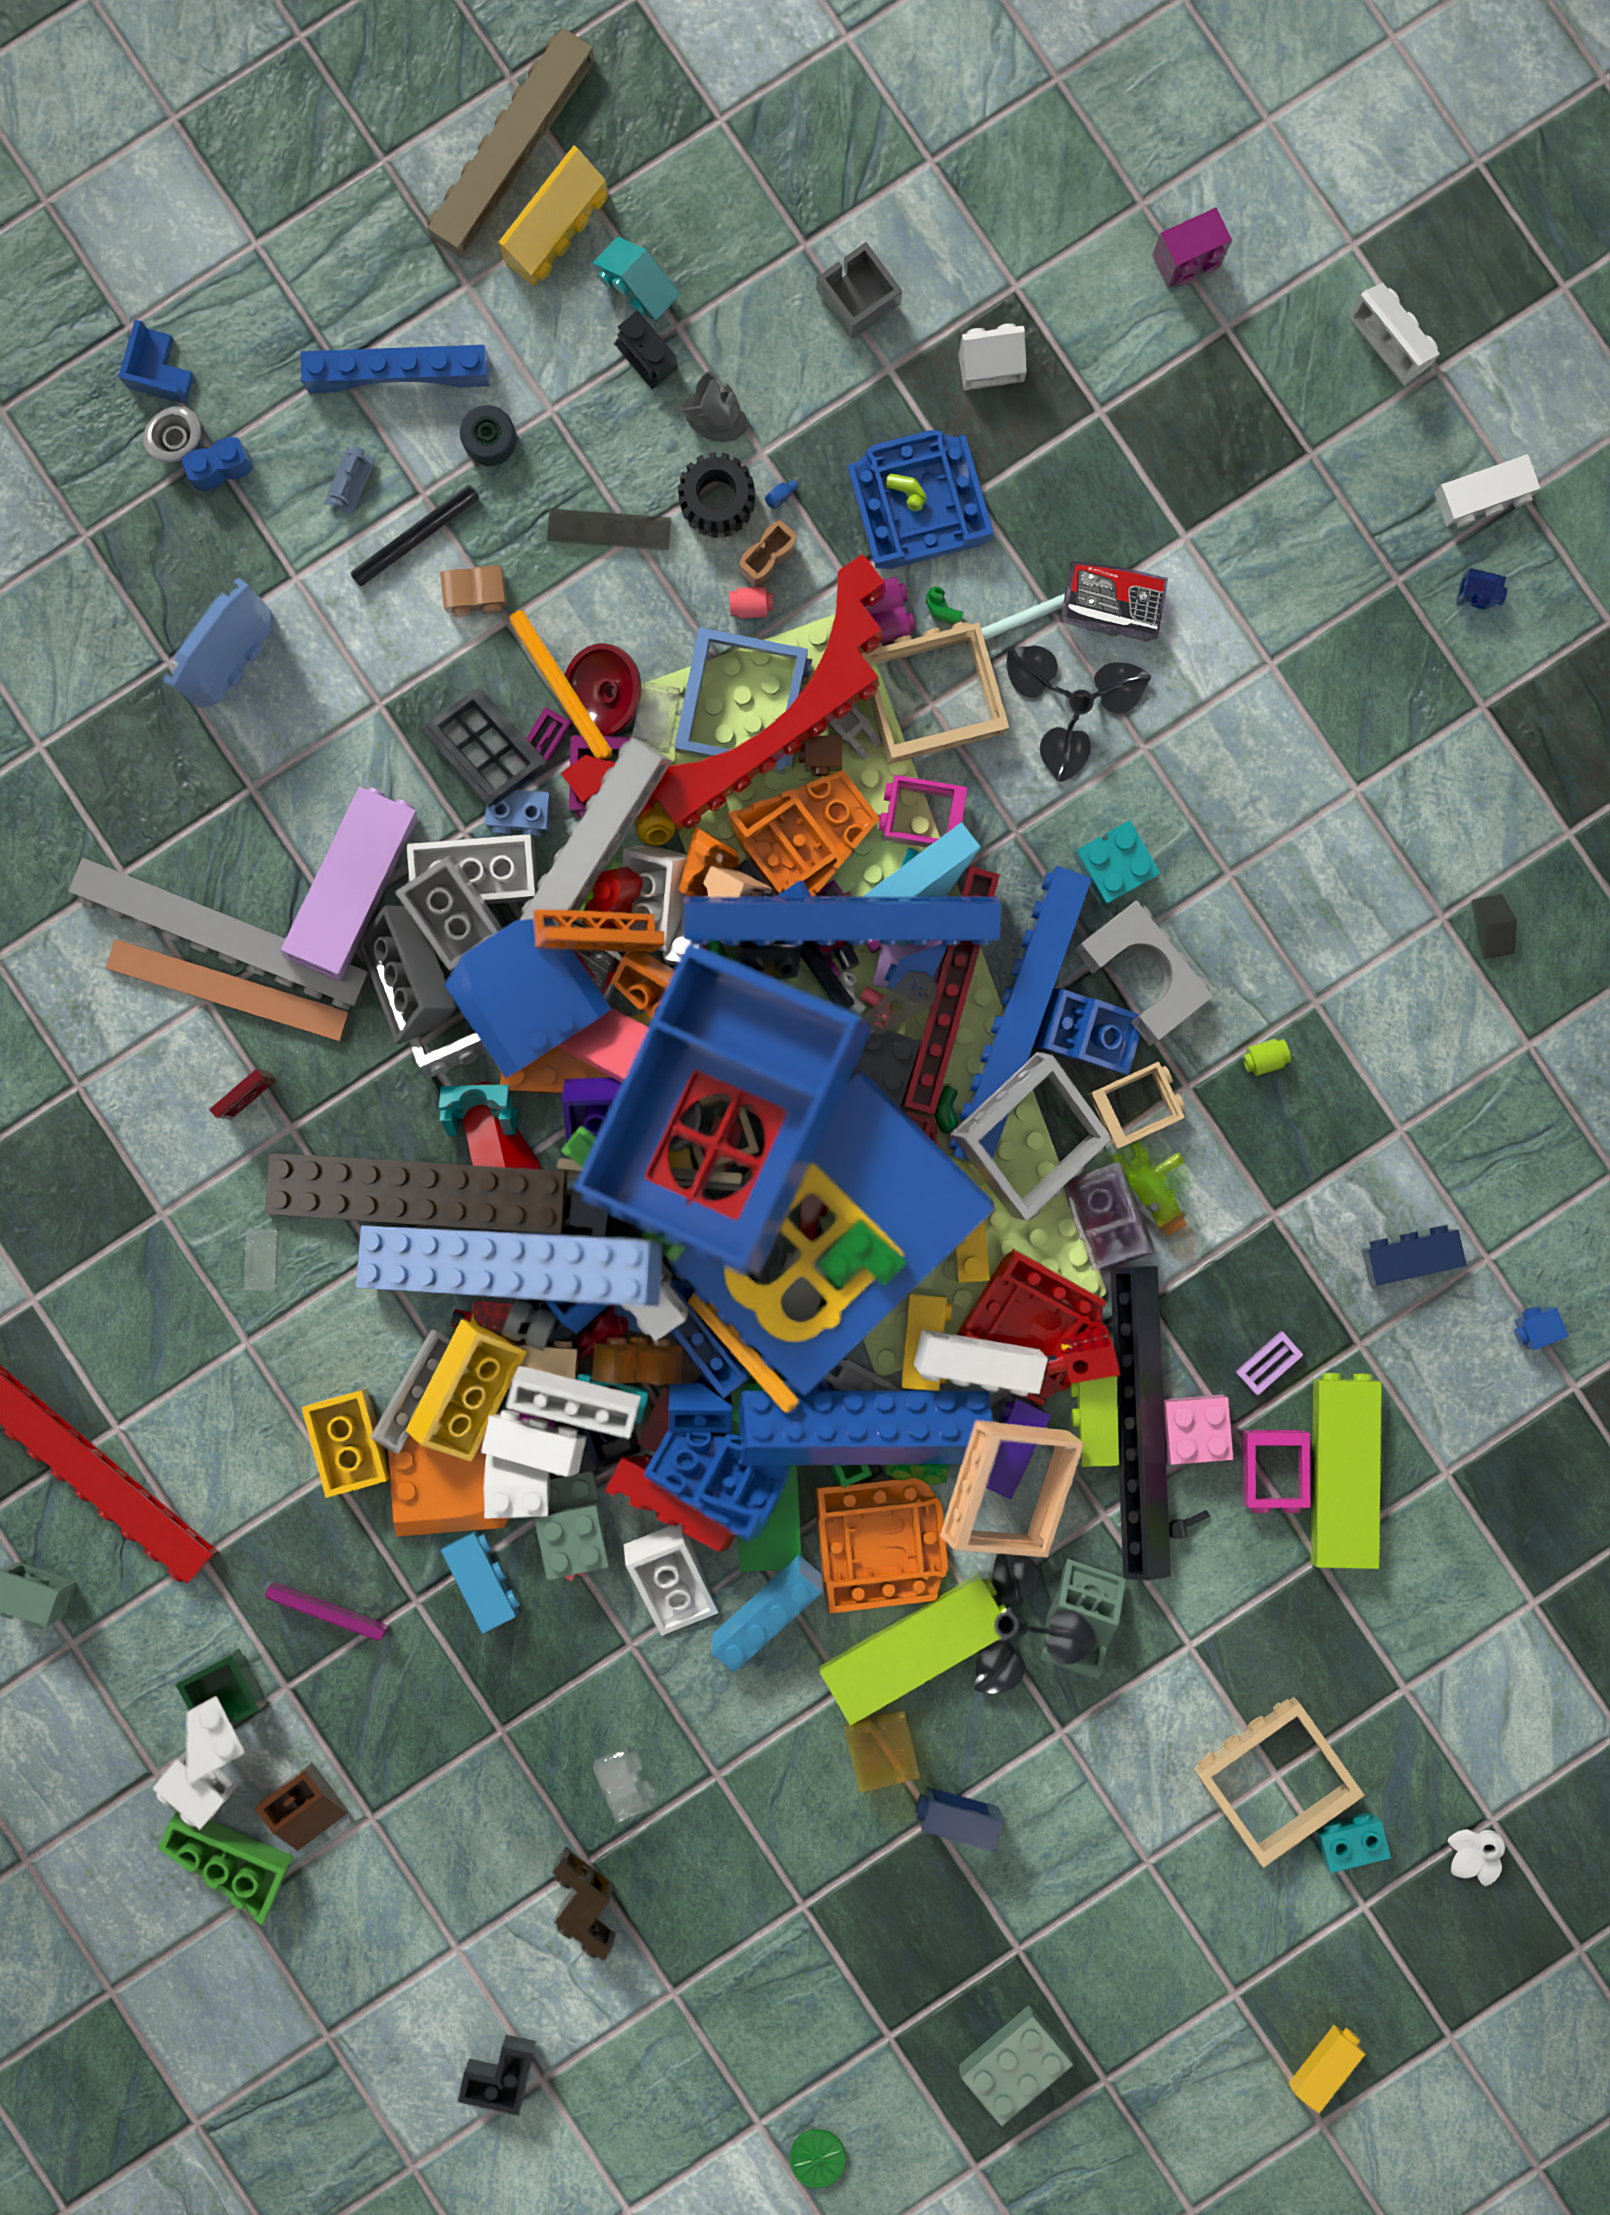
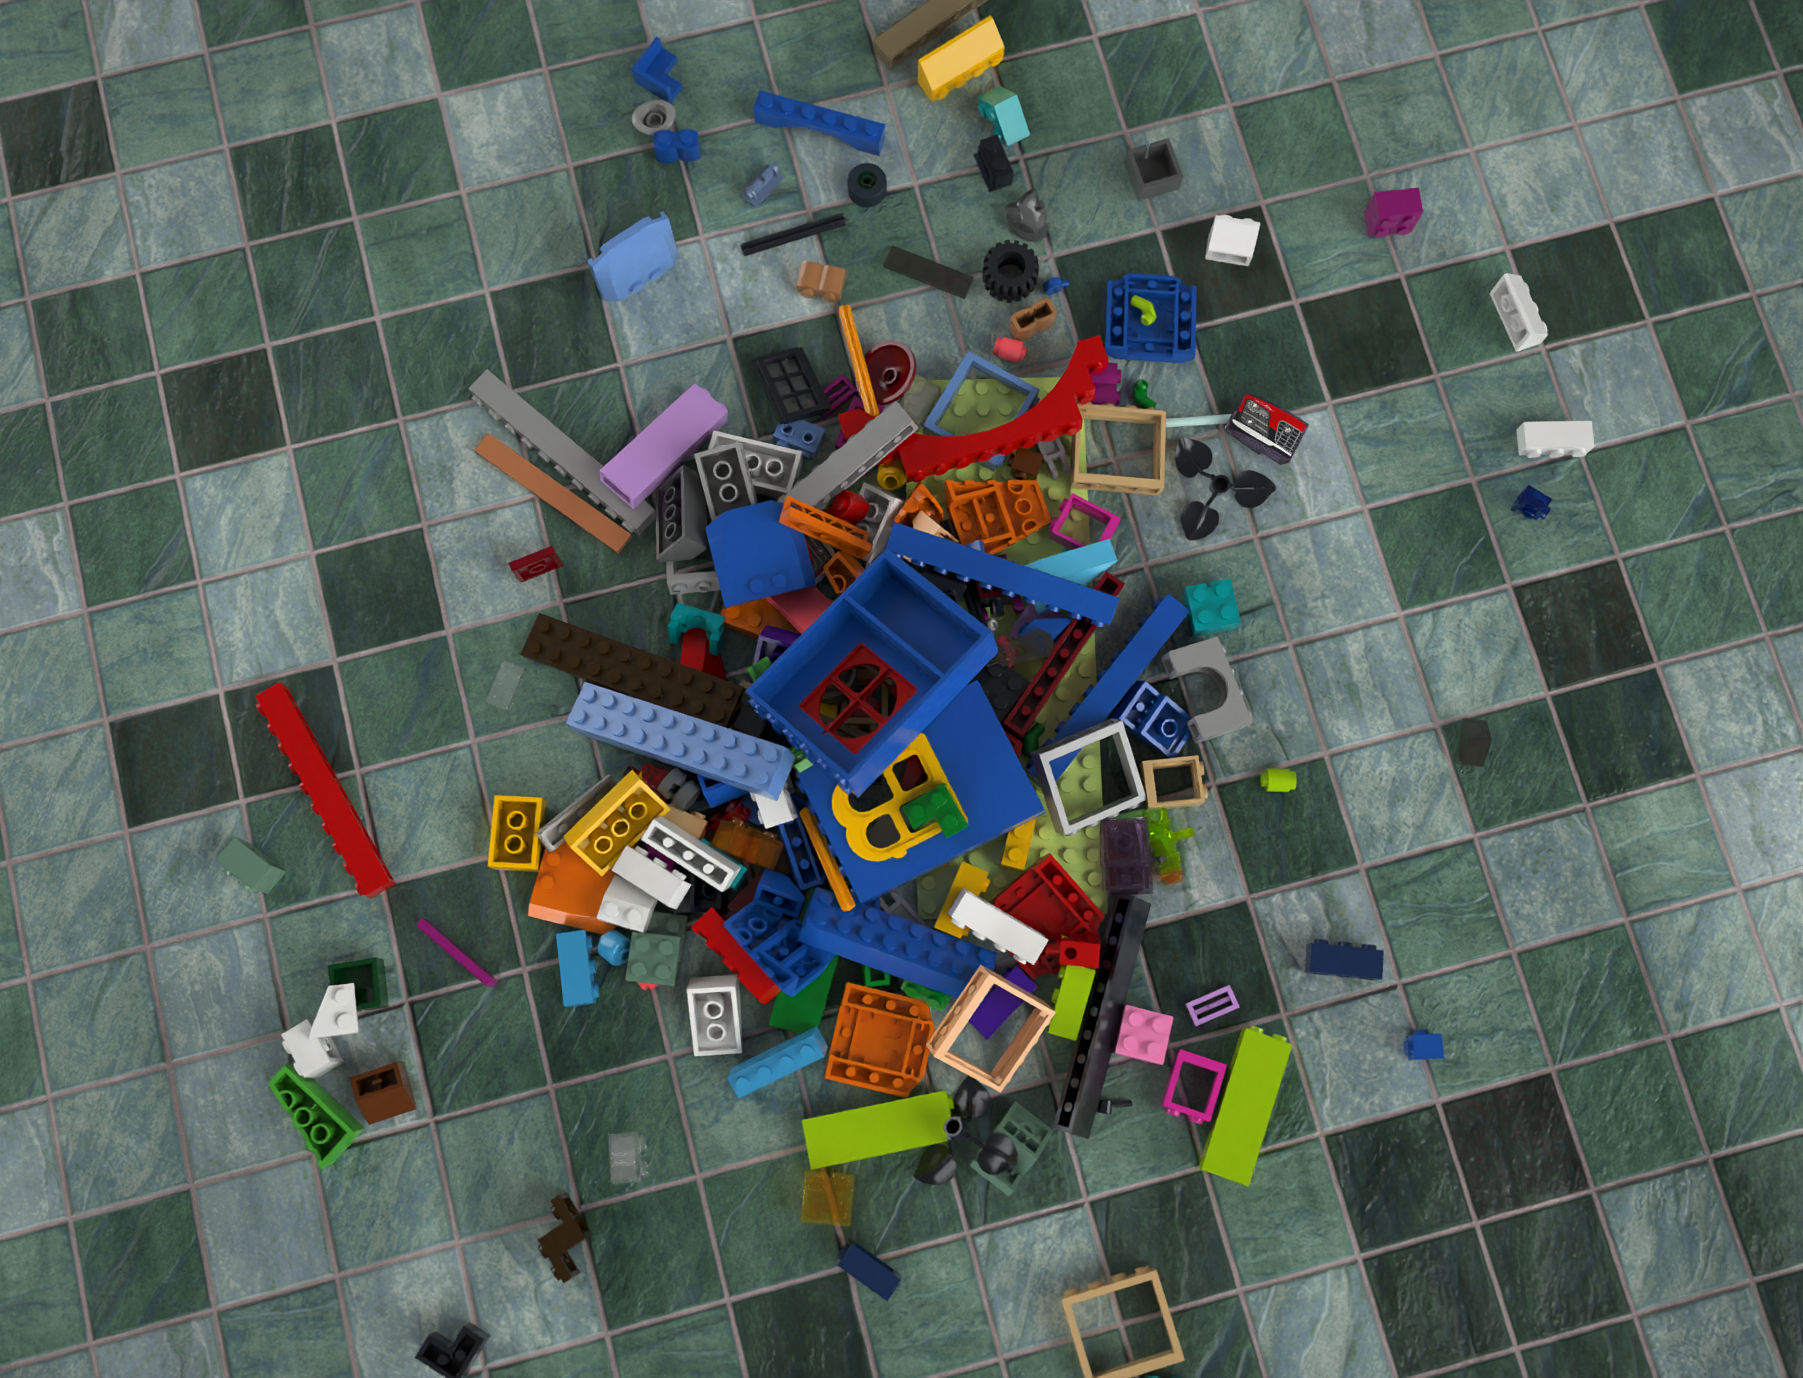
camera: 20 degrees right, 10 degrees down
(518, 1541) = (614, 947): none -> dark azure head

